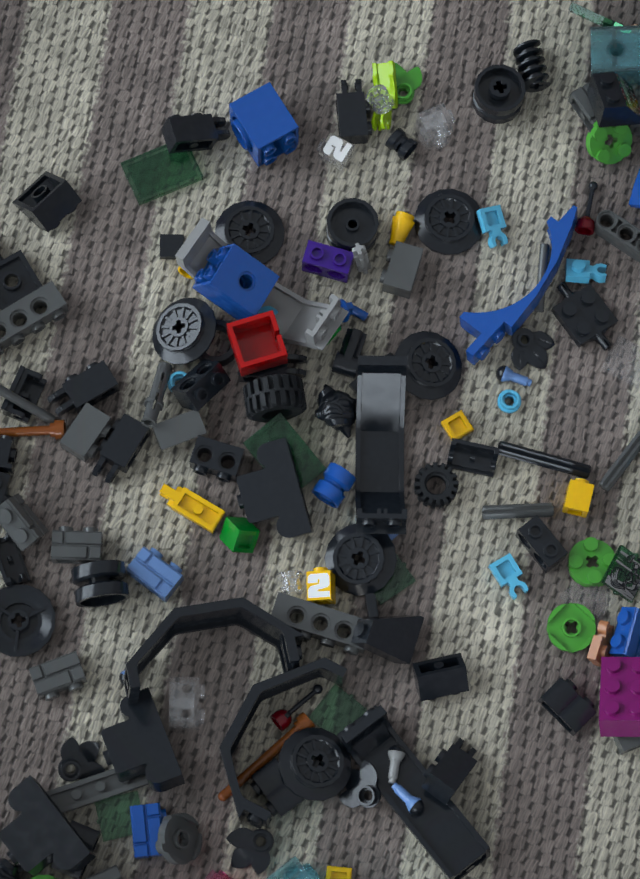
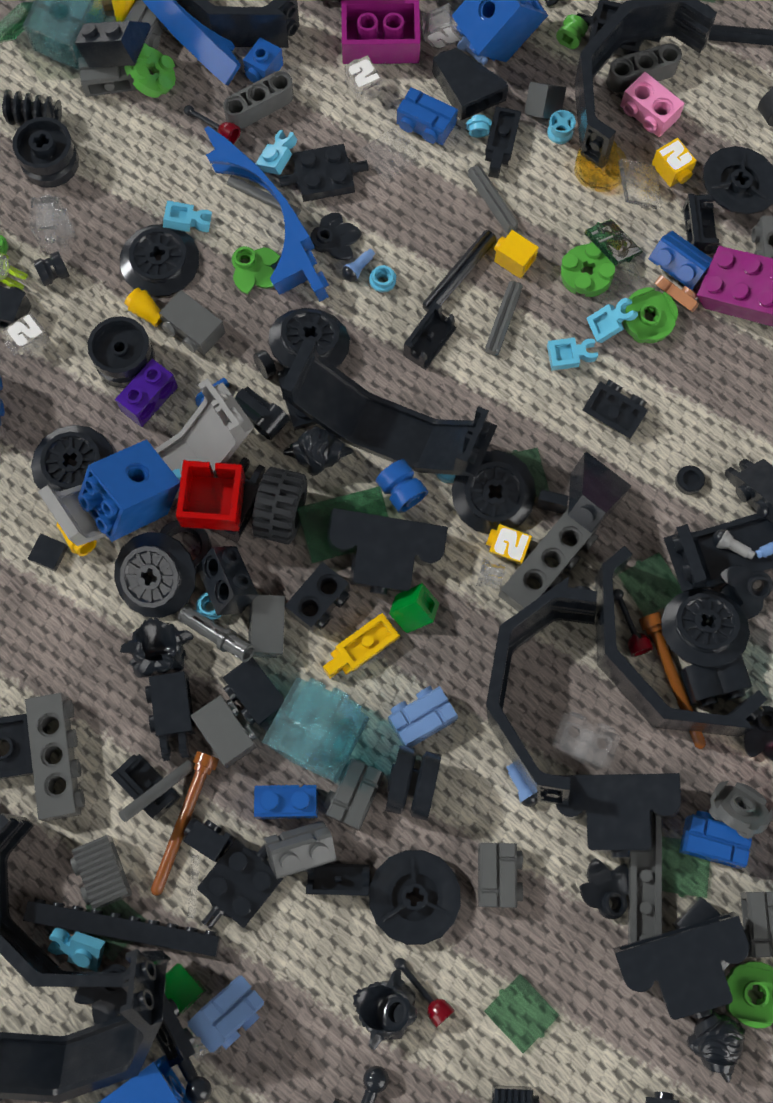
camera: 65 degrees left, 0 degrees up
(51, 499) = (286, 802): none -> blue brick
(111, 496) = (317, 728): none -> clear light blue brick
(128, 357) = (156, 648): none -> black hair
(361, 258) = (161, 355): light grey axle -> none
(392, 339) = (264, 364): none -> black tile
(440, 677) = (657, 460): black brick -> none
(440, 713) = (690, 480): none -> black tile
(446, 475) = (444, 369): black tyre -> none
(457, 426) = (387, 340): yellow tile -> none
(473, 300) = (256, 271): none -> bright green plate
(476, 630) = (615, 408): none -> black bracket
(541, 544) = (551, 306): black brick -> none
(549, 595) = (608, 320): none -> medium azure plate
(567, 706) = (730, 351): black brick -> none

